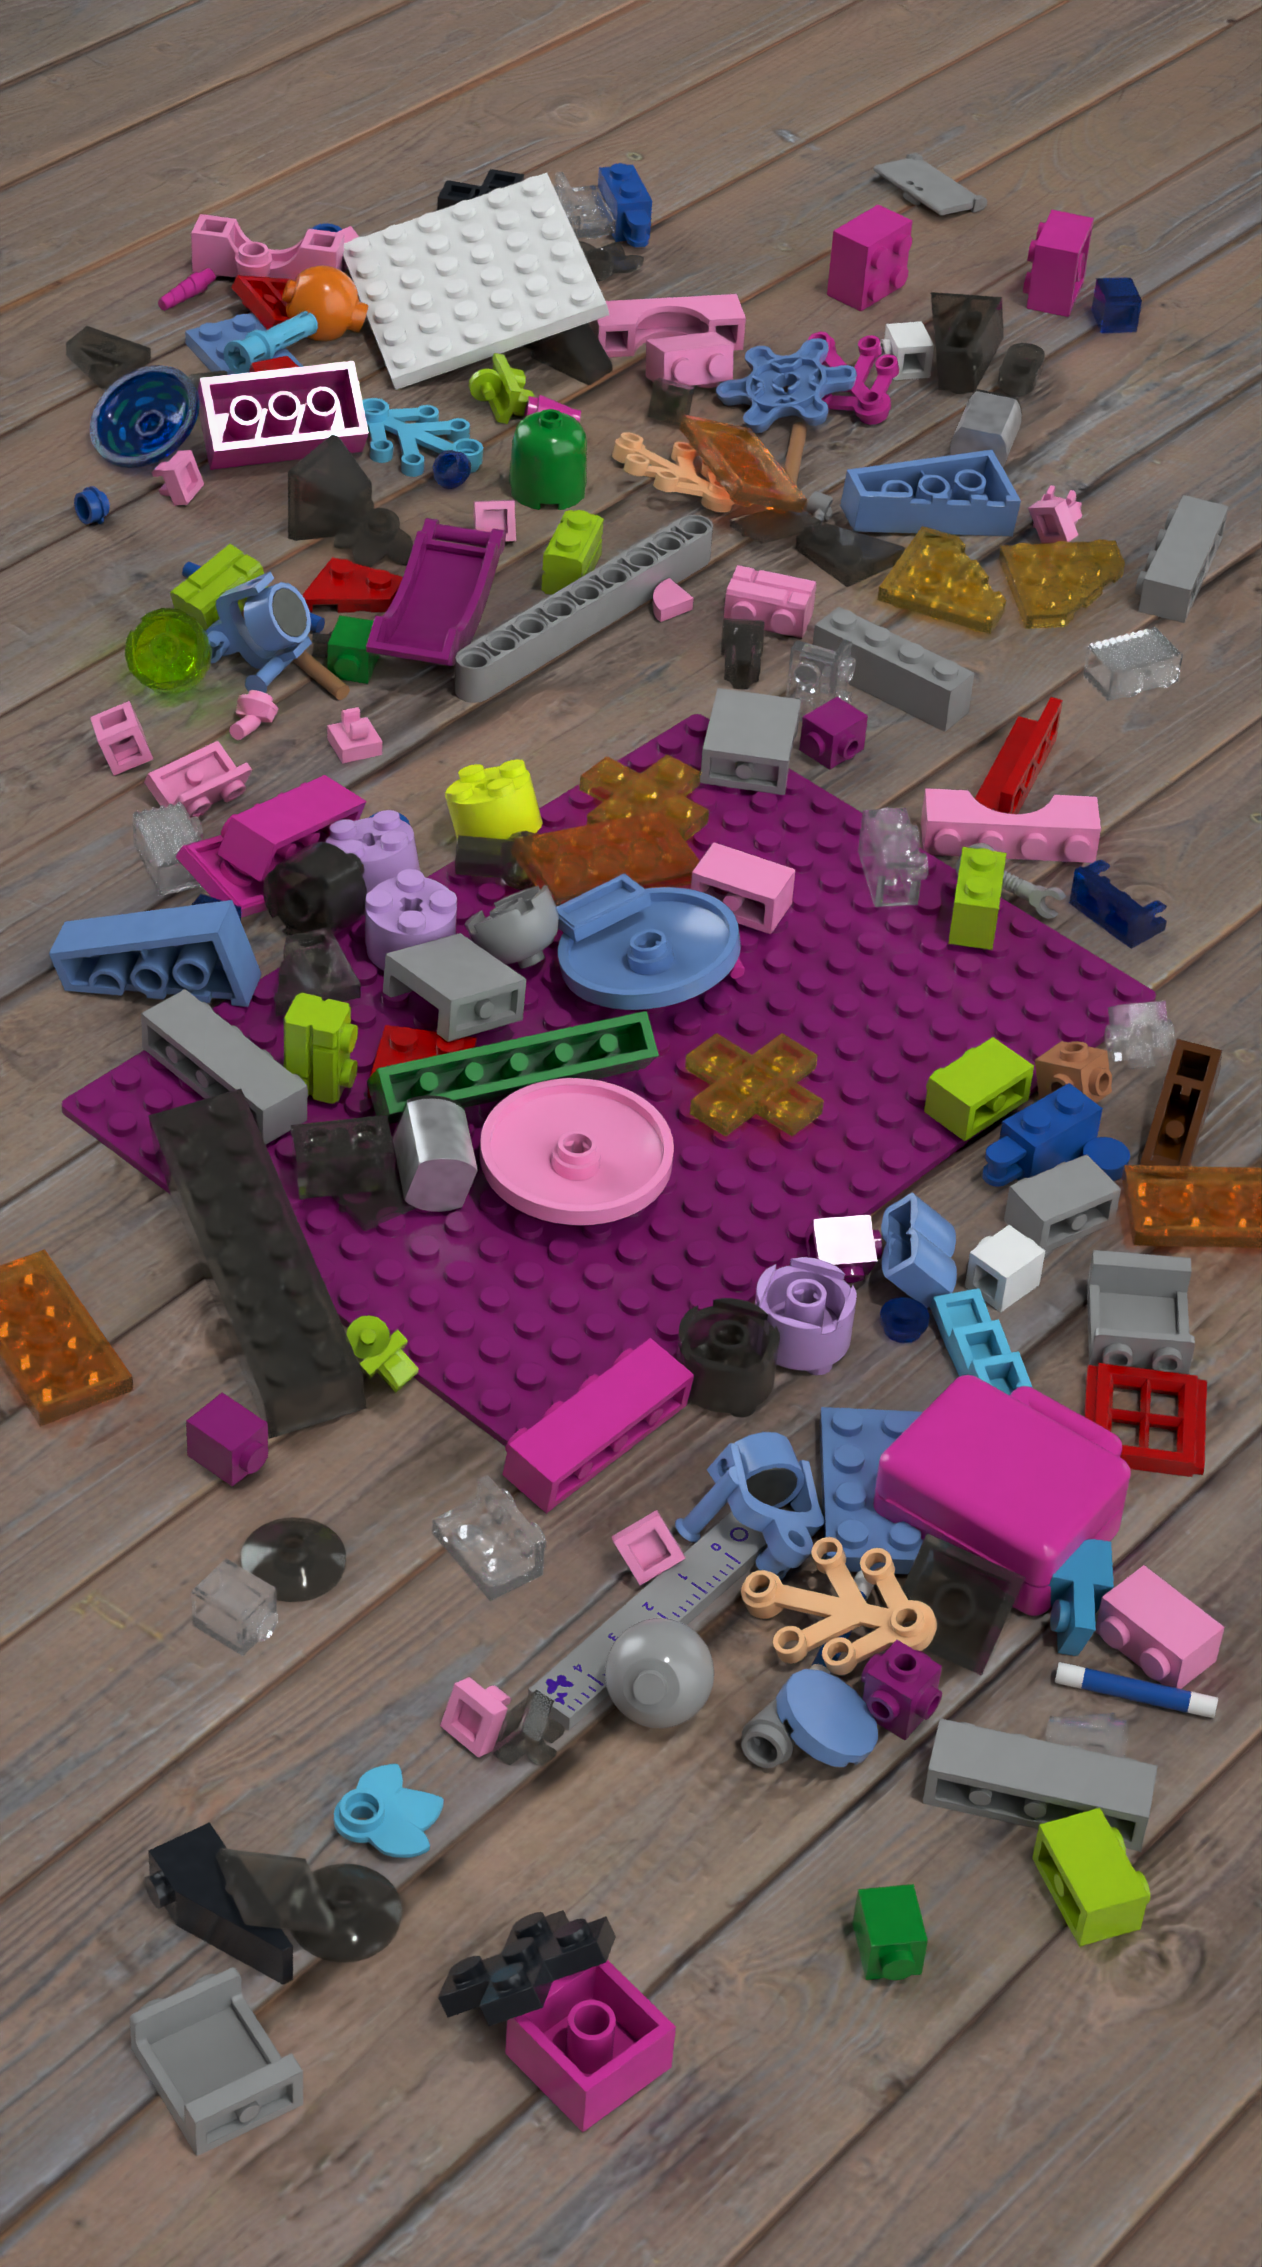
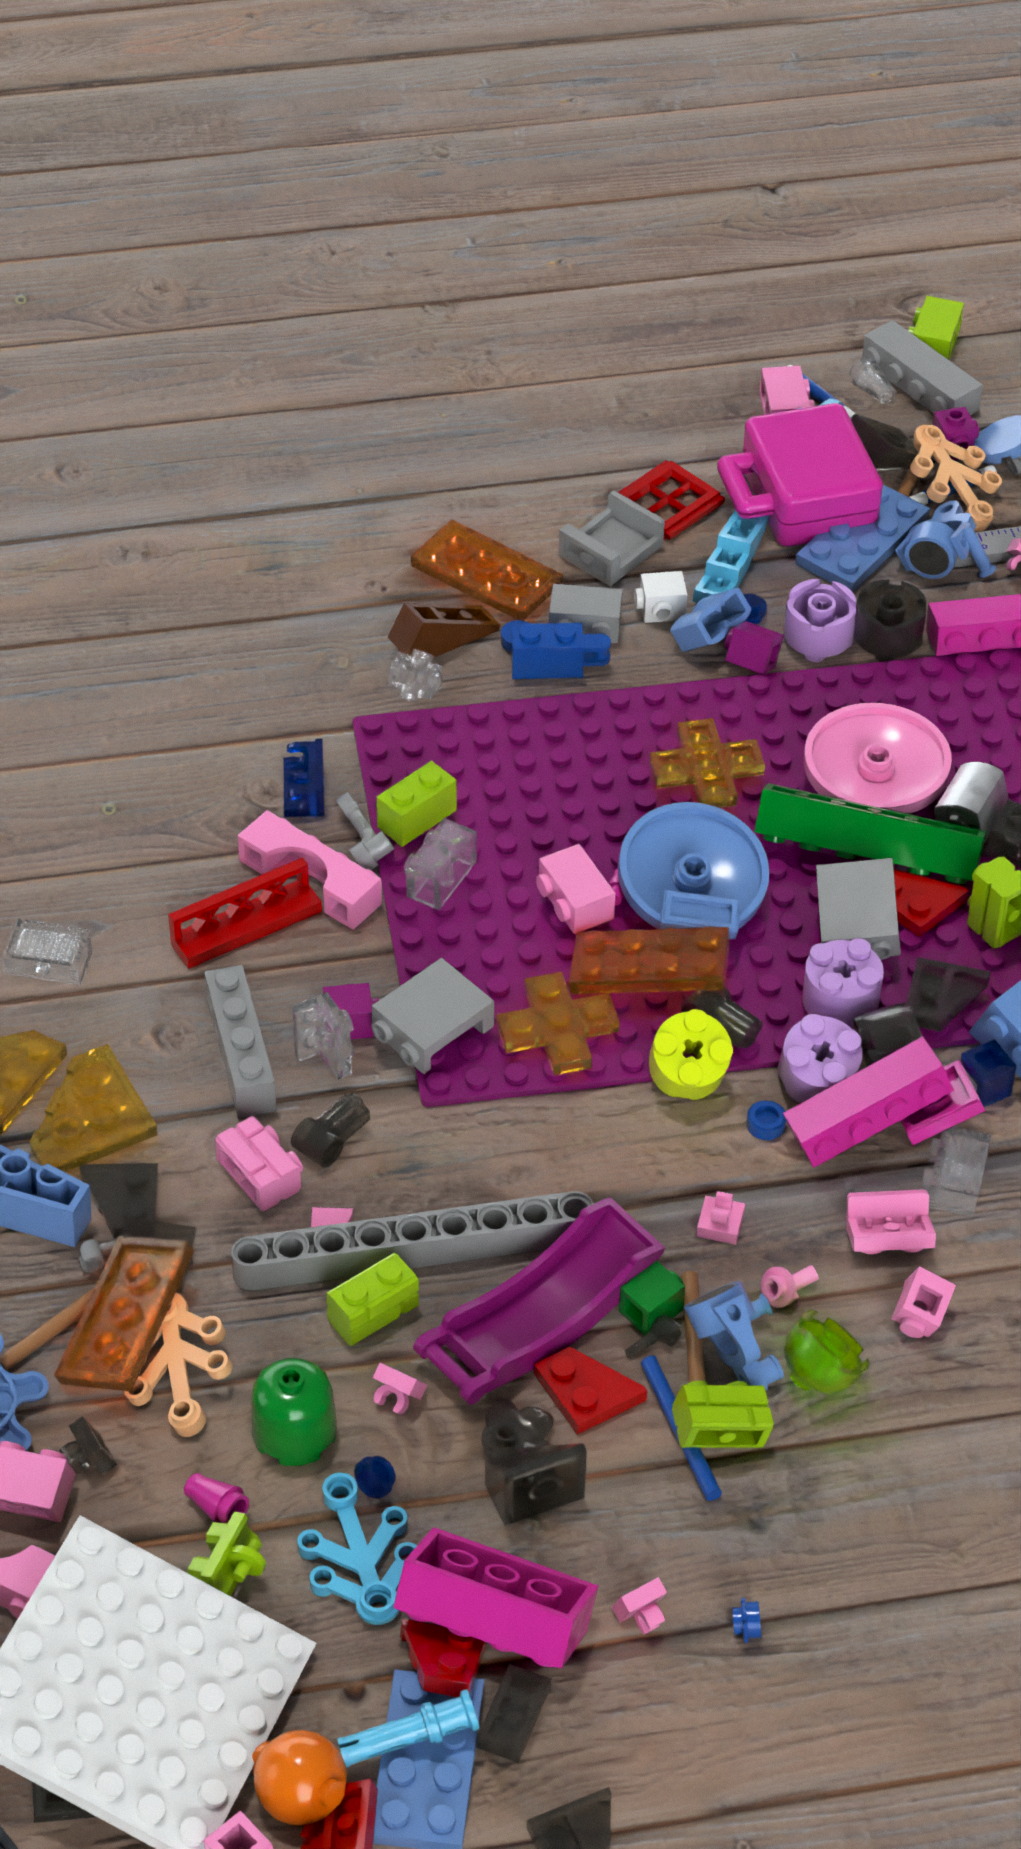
camera: 140 degrees left, 5 degrees up
(144, 416) = (624, 1685): clear blue dish -> none
(517, 927) = (775, 931): light grey cylinder -> none
(978, 1088) = (566, 685): lime brick -> none
(1075, 1064) = (490, 671): nougat brick -> none

